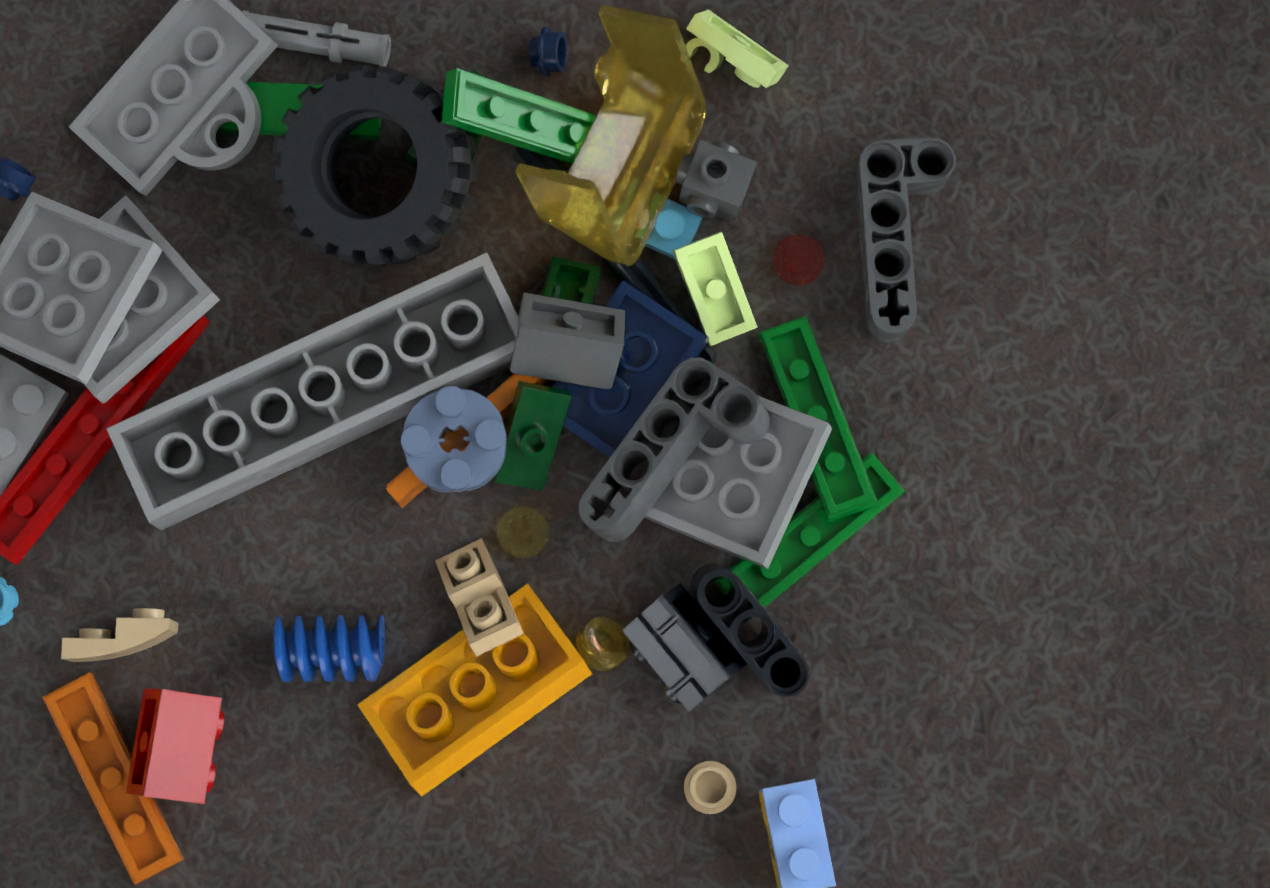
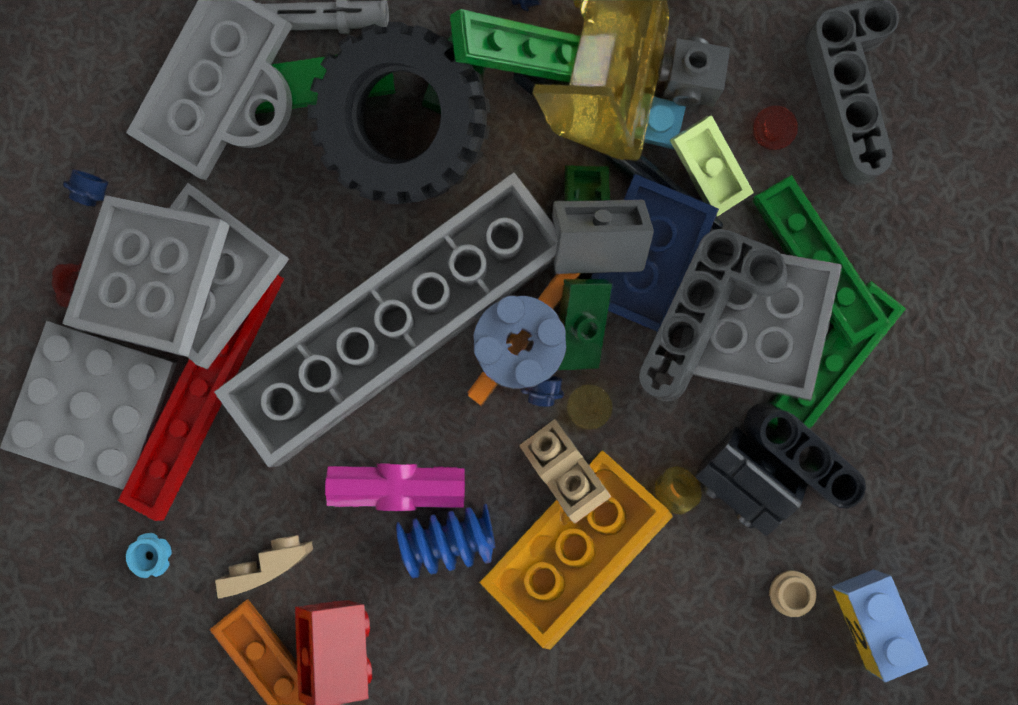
camera: 10 degrees left, 5 degrees up
(285, 577) = (395, 487): none -> dark pink piece
(475, 503) = (545, 392): none -> dark blue plate

